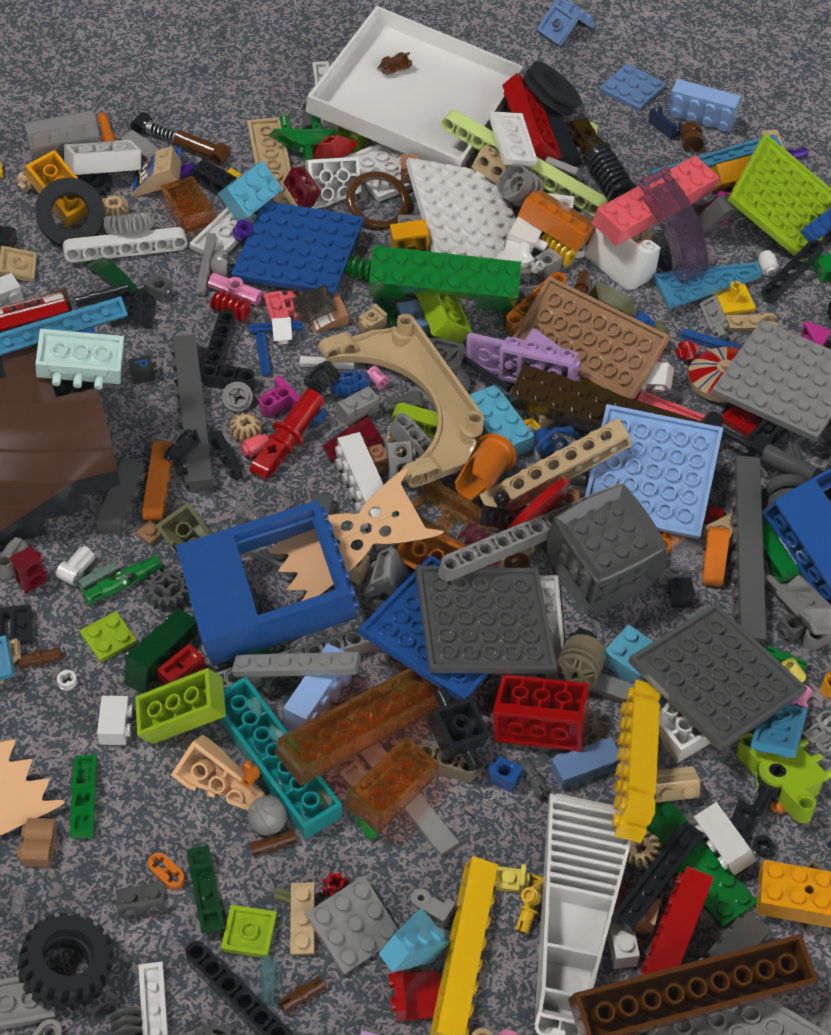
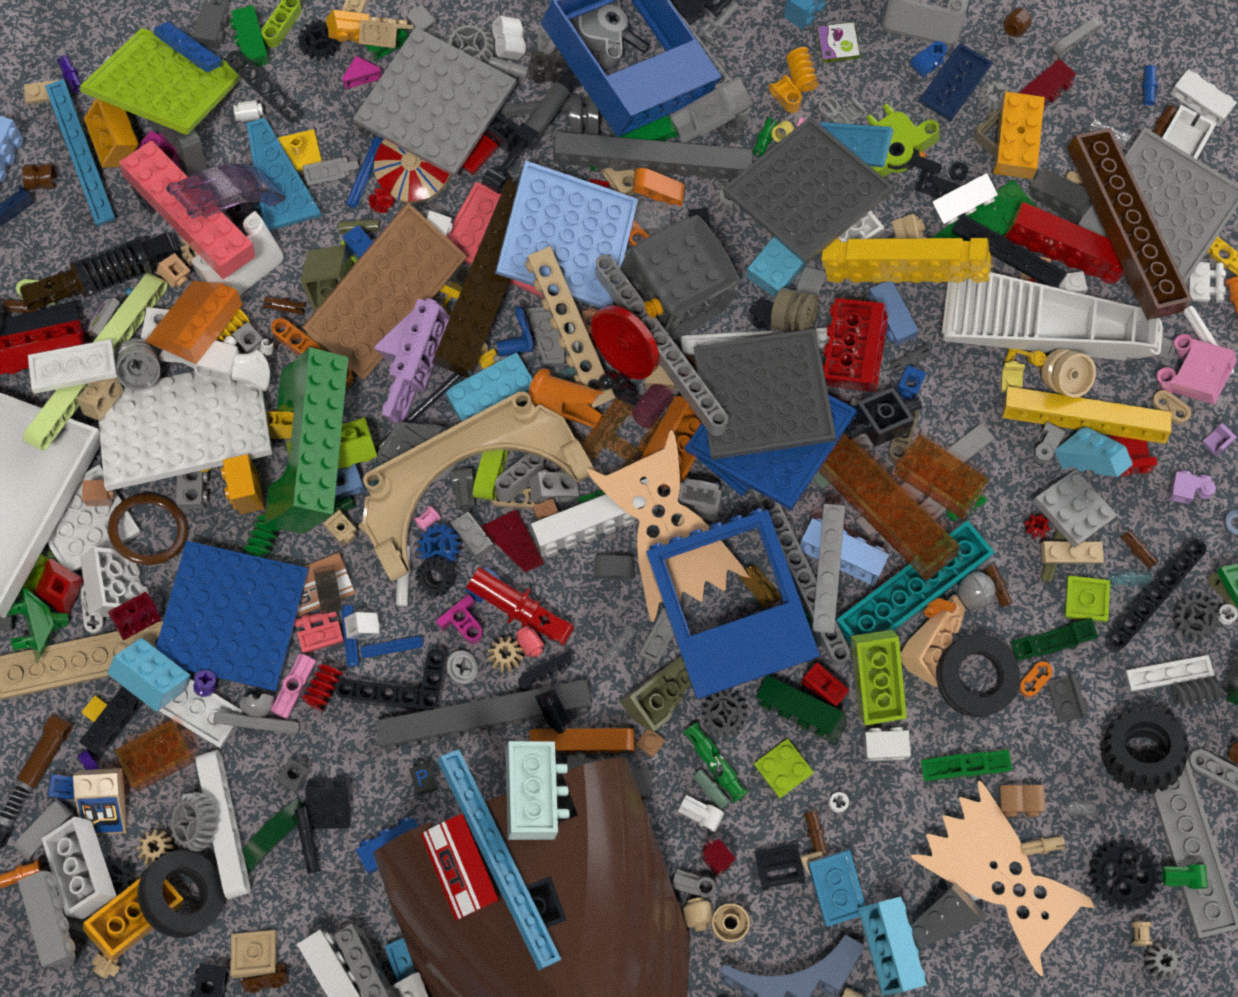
camera: 90 degrees left, 20 degrees up
(157, 783) = (1005, 665): none -> black tyre
(511, 925) = (1068, 372): none -> tan wheel
(748, 323) = (334, 136): tan hinge -> none

